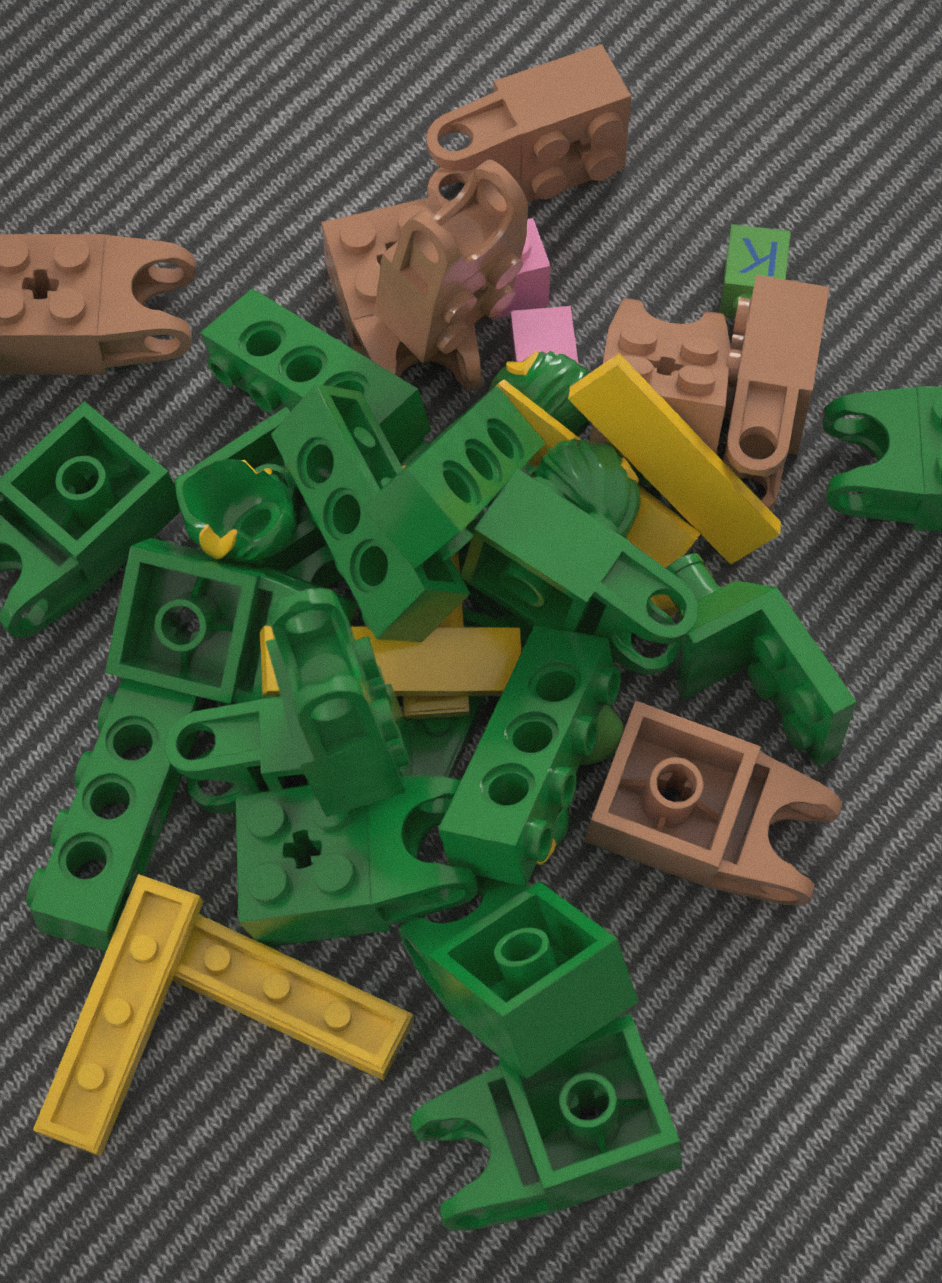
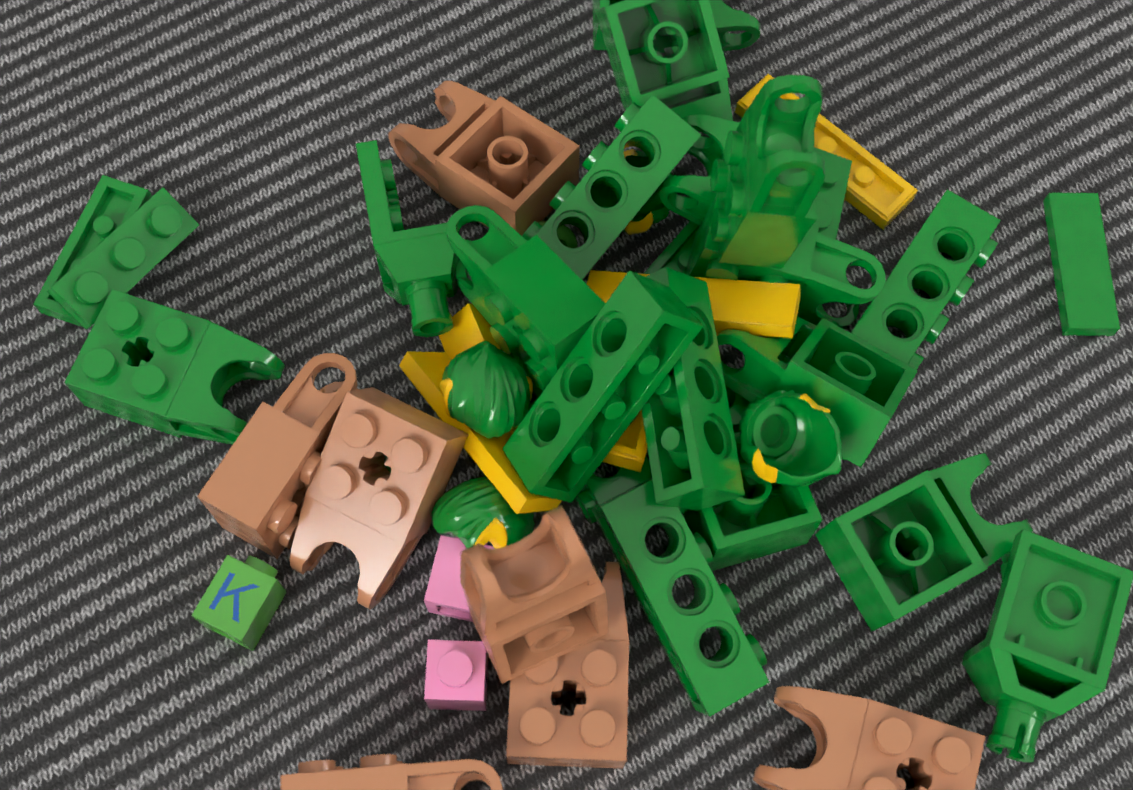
camera: 165 degrees left, 5 degrees up
(118, 1015) = (939, 158): yellow tile -> none
(674, 459) = (409, 395): yellow tile -> none

